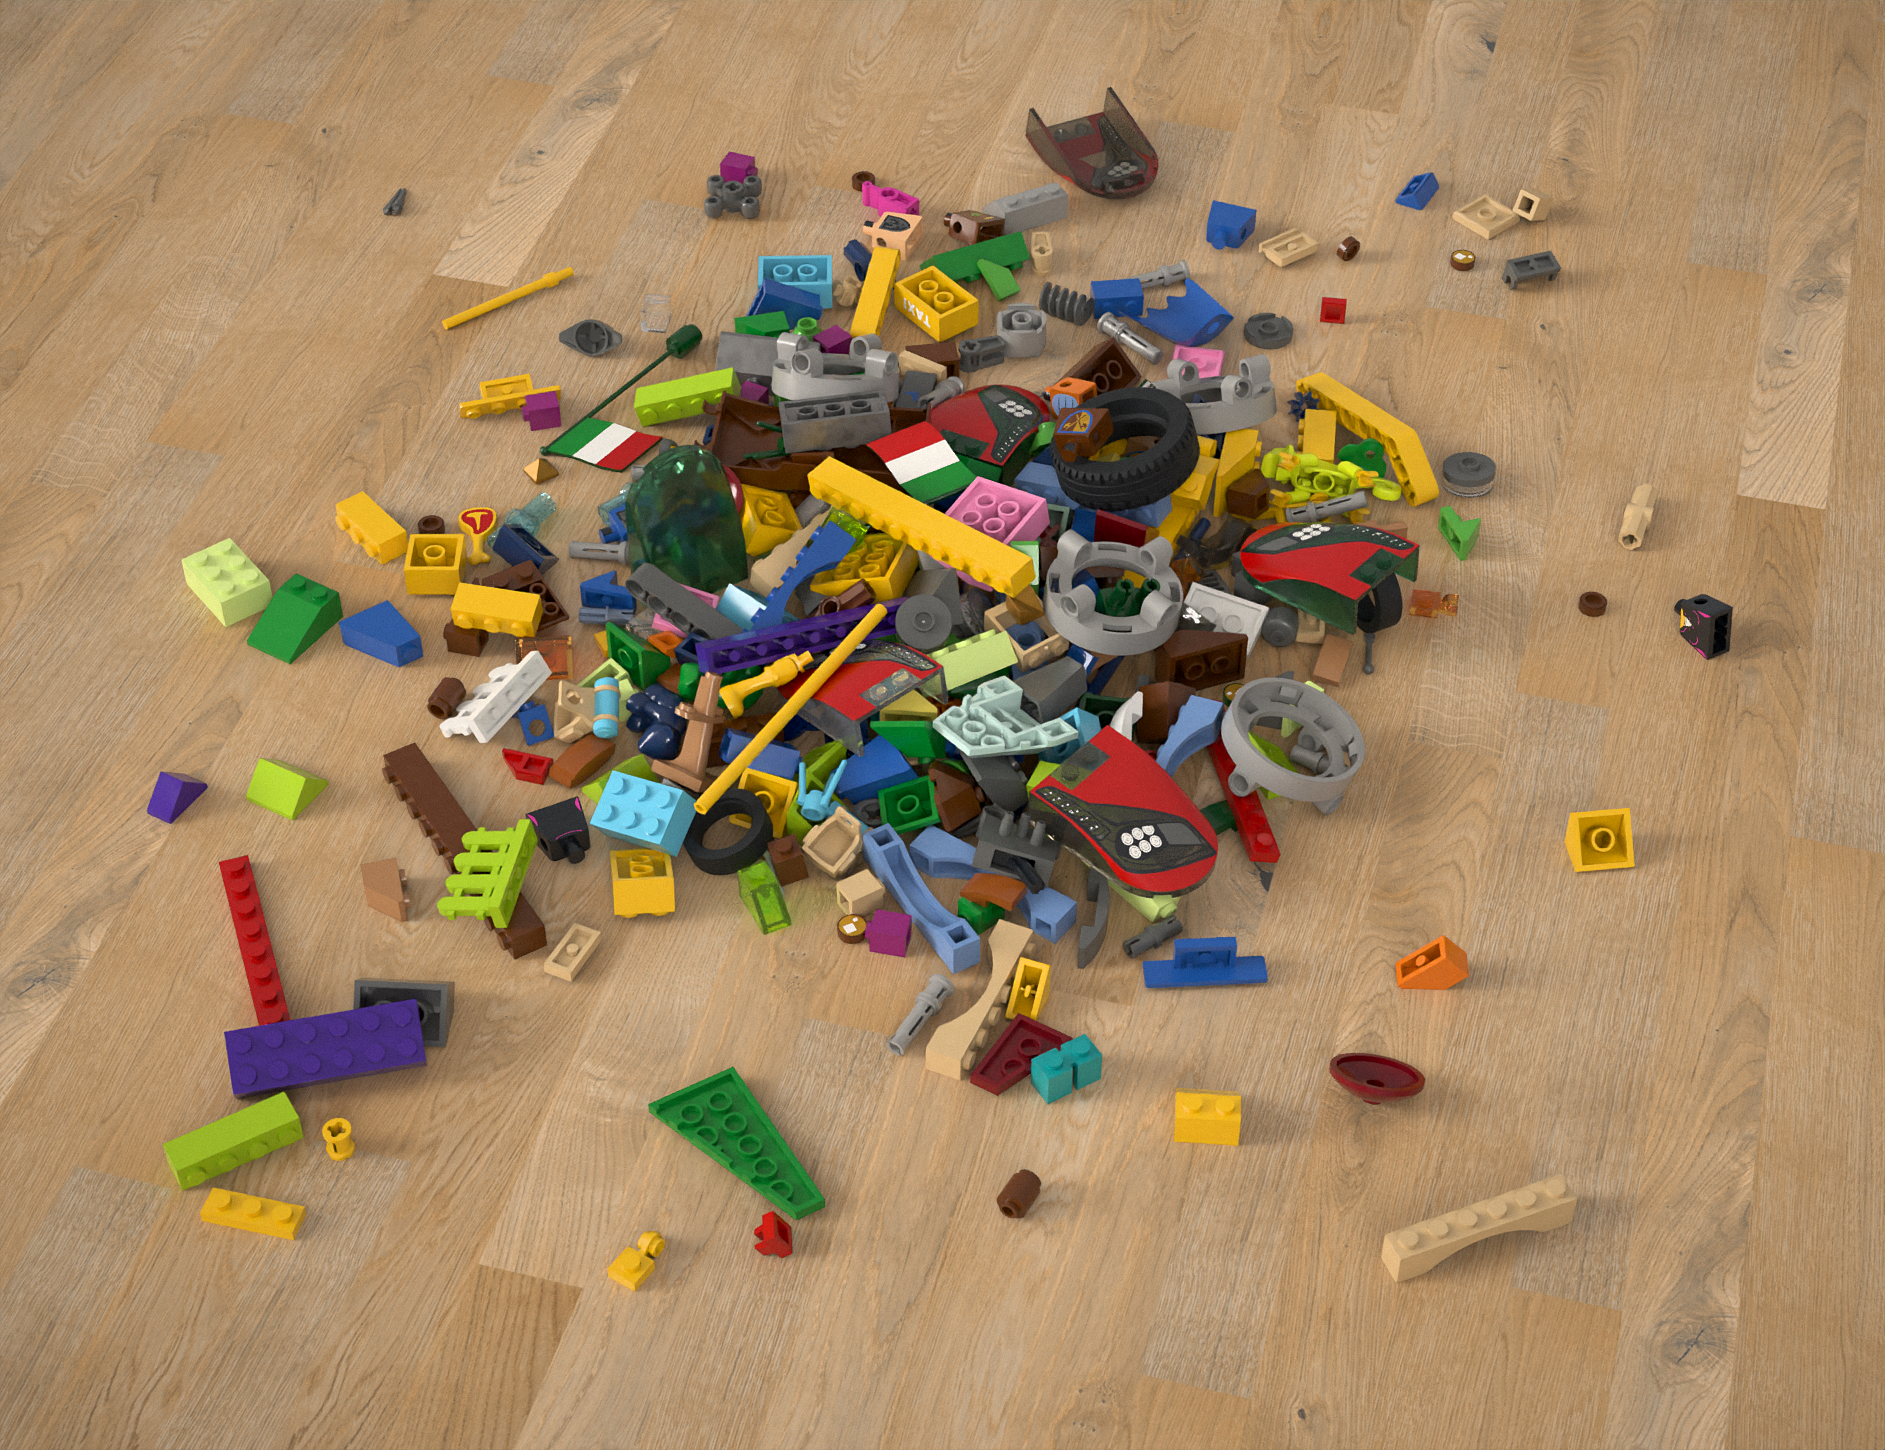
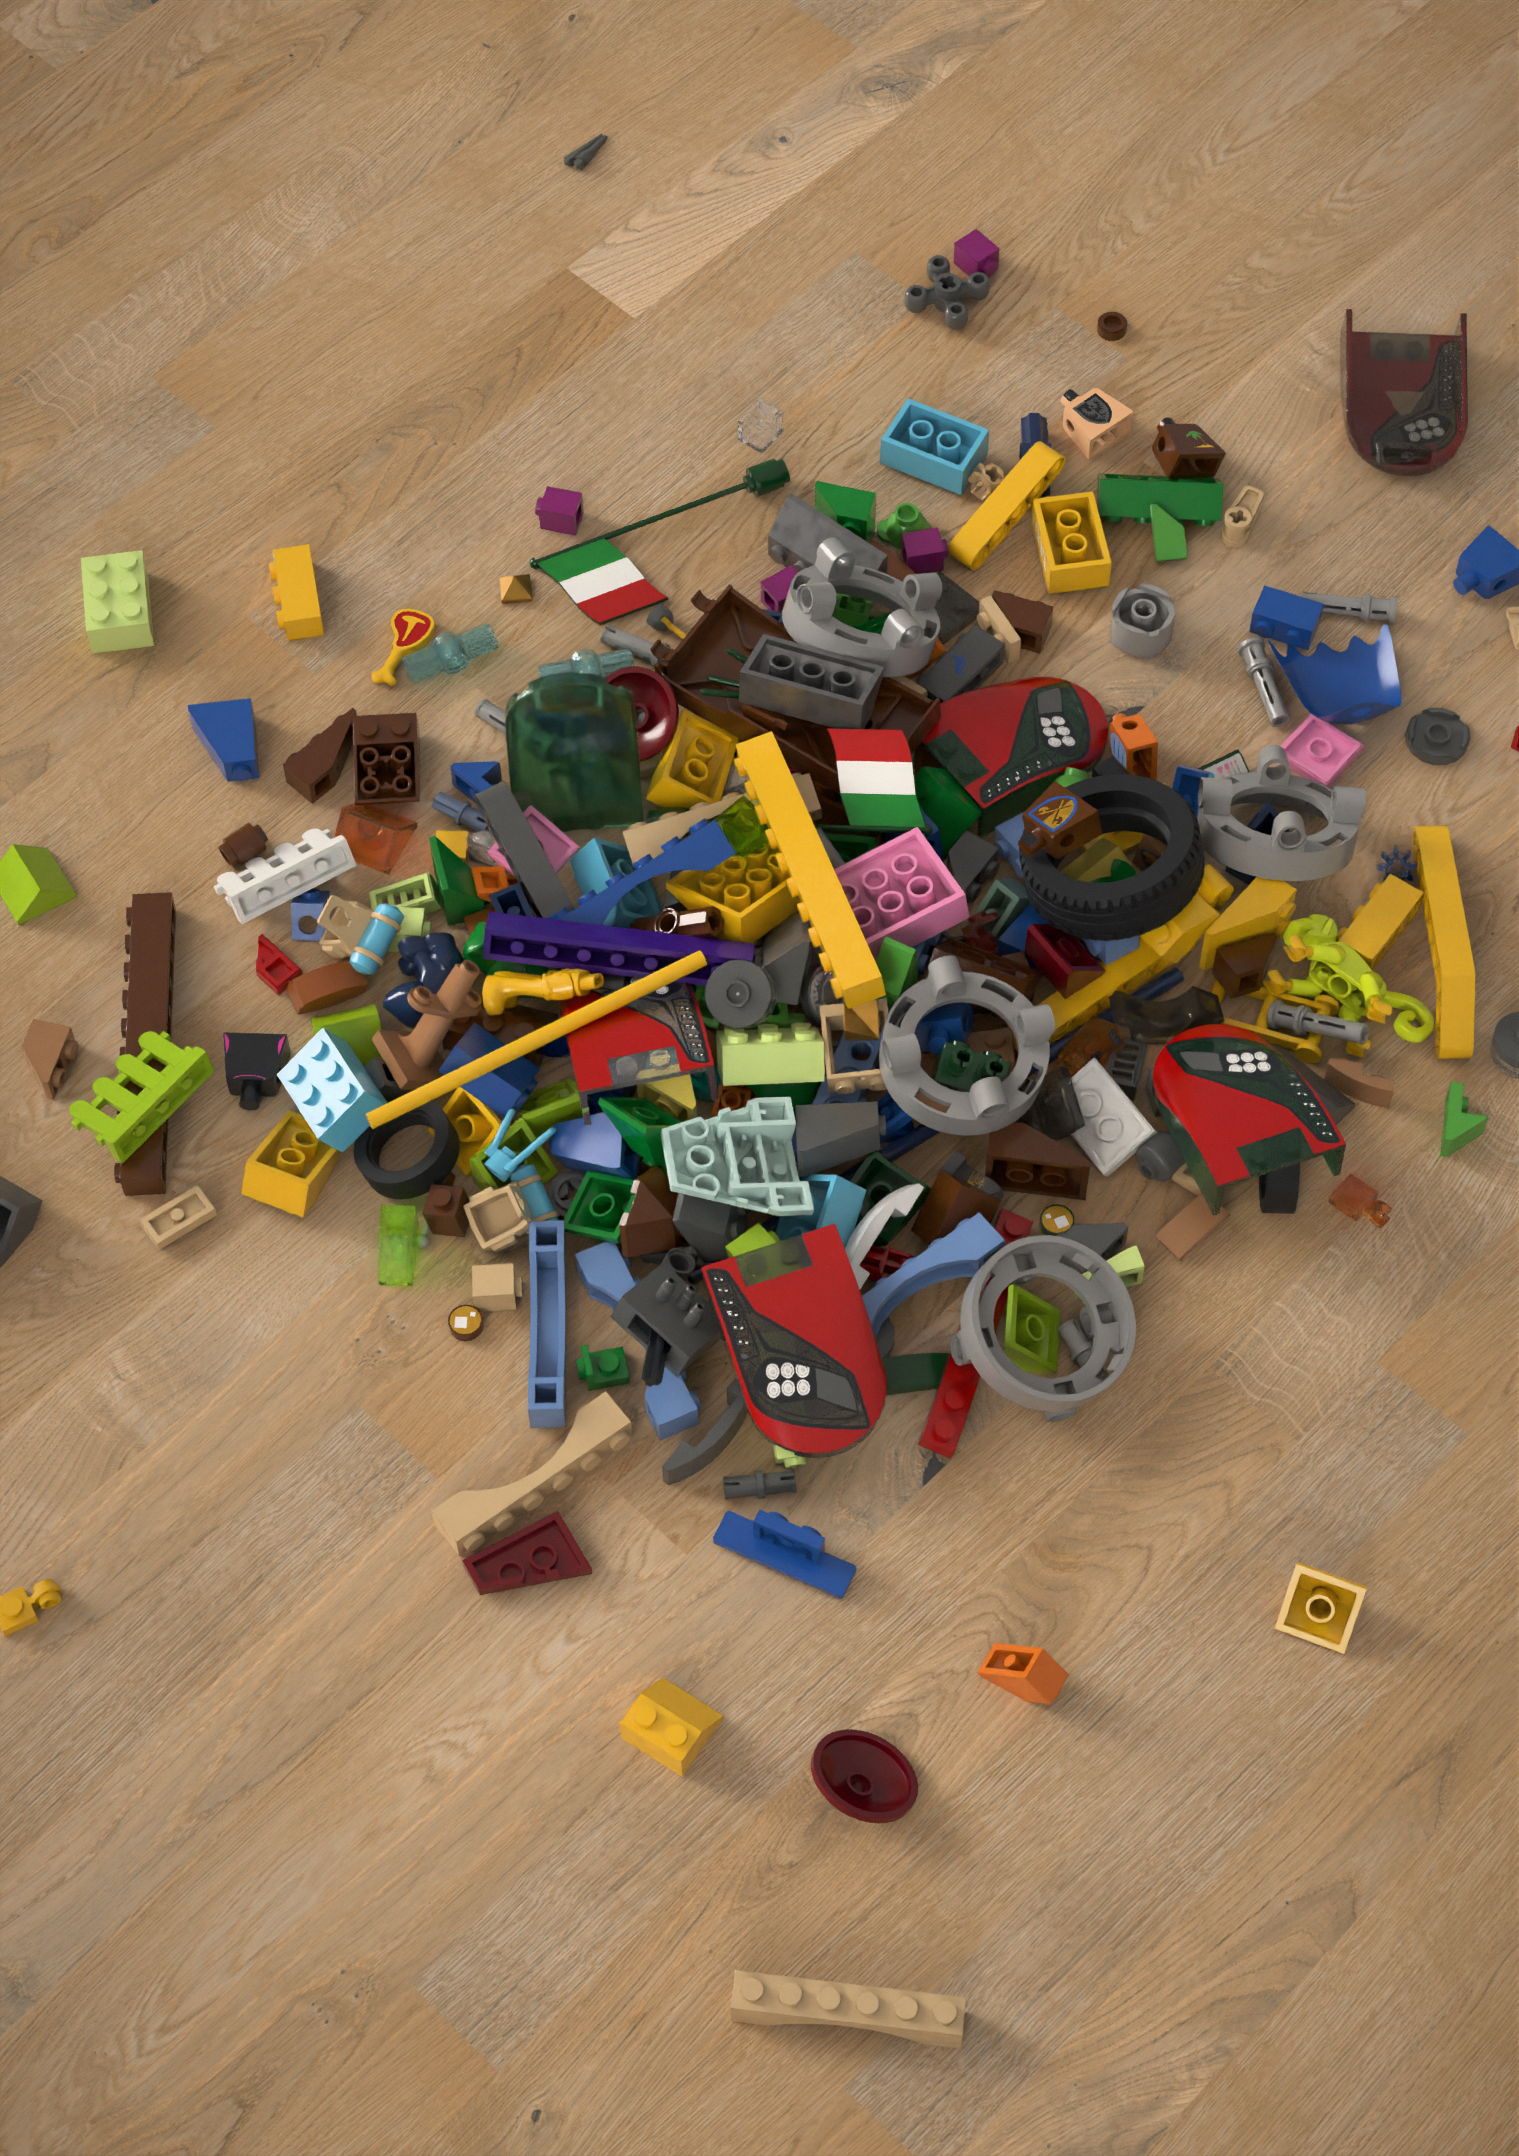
camera: 30 degrees right, 15 degrees up
(296, 618) = (156, 678): green slope -> none
(431, 525) = (361, 615): reddish brown tile -> none
(435, 563) = (327, 671): yellow brick -> none
(496, 610) = (338, 766): yellow brick -> none
(503, 395) = (535, 471): yellow bracket -> none
(519, 545) = (428, 692): dark blue slope -> none
(549, 280) = (680, 329): yellow bar -> none
(591, 337) = (669, 431): dark grey hat -> none
(683, 396) = (714, 561): lime brick -> none
(734, 1130) = (199, 1503): green wing -> none
(775, 1236) = (162, 1647): red tile -> none
(781, 297) = (900, 477): blue slope -> none
(889, 200) = (1118, 375): dark pink piece -> none
(889, 933) = (494, 1349): magenta brick -> none
(926, 1005) = (477, 1453): light grey pin -> none
(943, 391) = (998, 671): light grey pin -> none
(981, 352) = (1082, 631): dark grey piece -> none
(994, 888) = (621, 1353): dark orange slope -> none
(1019, 1194) = (420, 1723): reddish brown brick -> none
(1029, 989) = (584, 1492): yellow slope -> none
(1030, 208) = (1270, 446): light grey slope -> none
(1054, 1069) = (576, 1595): teal piece -> none
(1065, 306) = (1219, 602): dark grey piece -> none
(1107, 367) = (1193, 723): reddish brown slope -> none
(1368, 462) = (1409, 974): green plate -> none
(1369, 639) = (1229, 1253): dark grey hinge -> none

